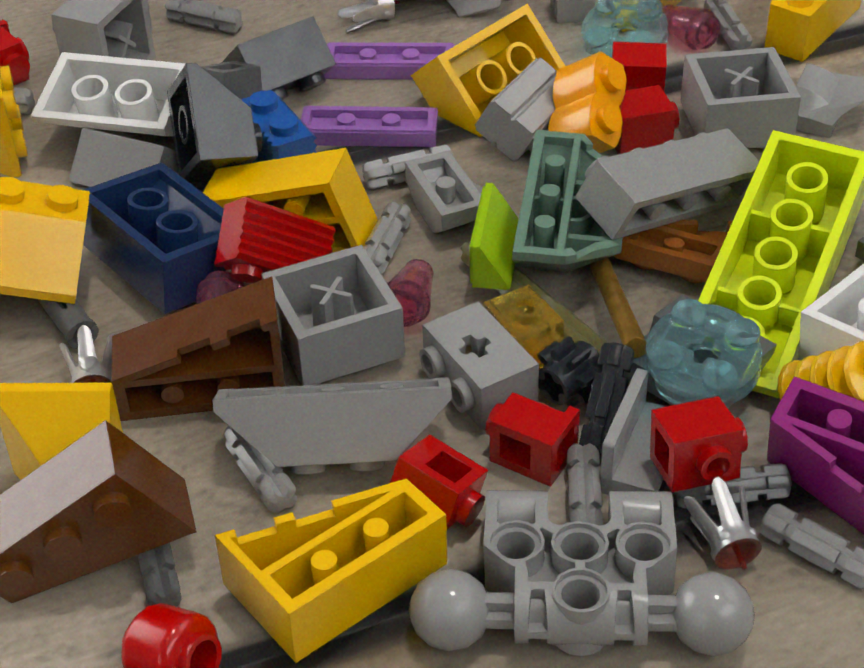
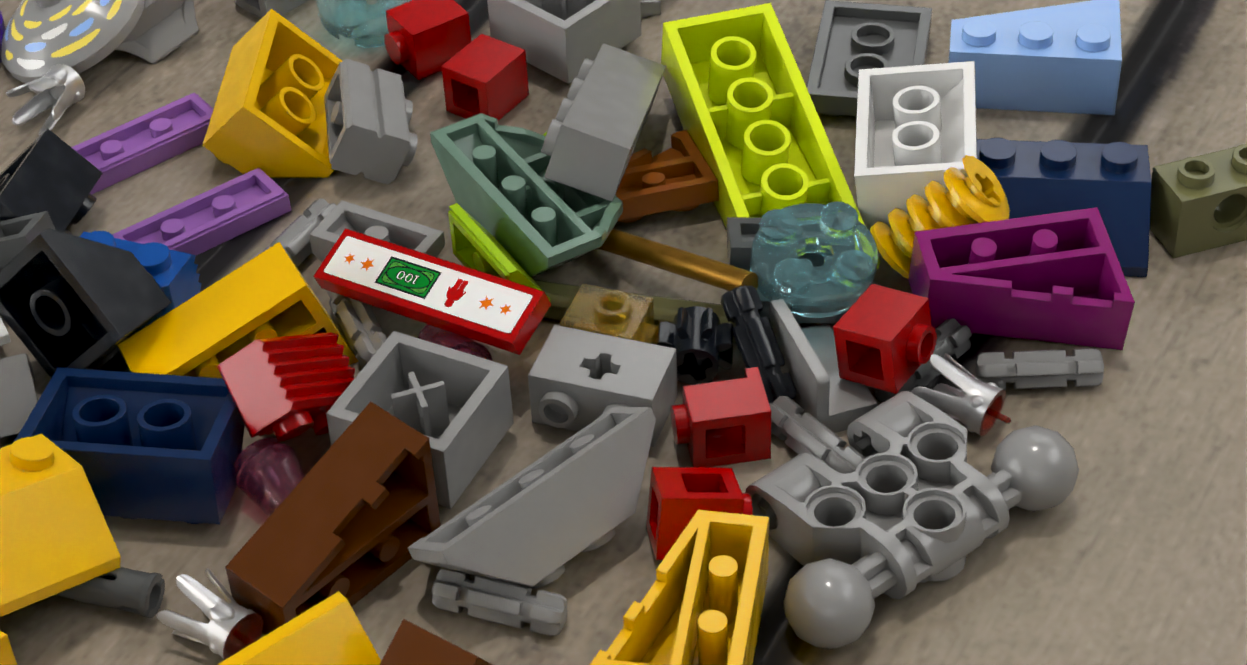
camera: 40 degrees left, 0 degrees up
(428, 238) = (433, 291): none -> tile
(589, 100) = (437, 80): light orange brick -> none

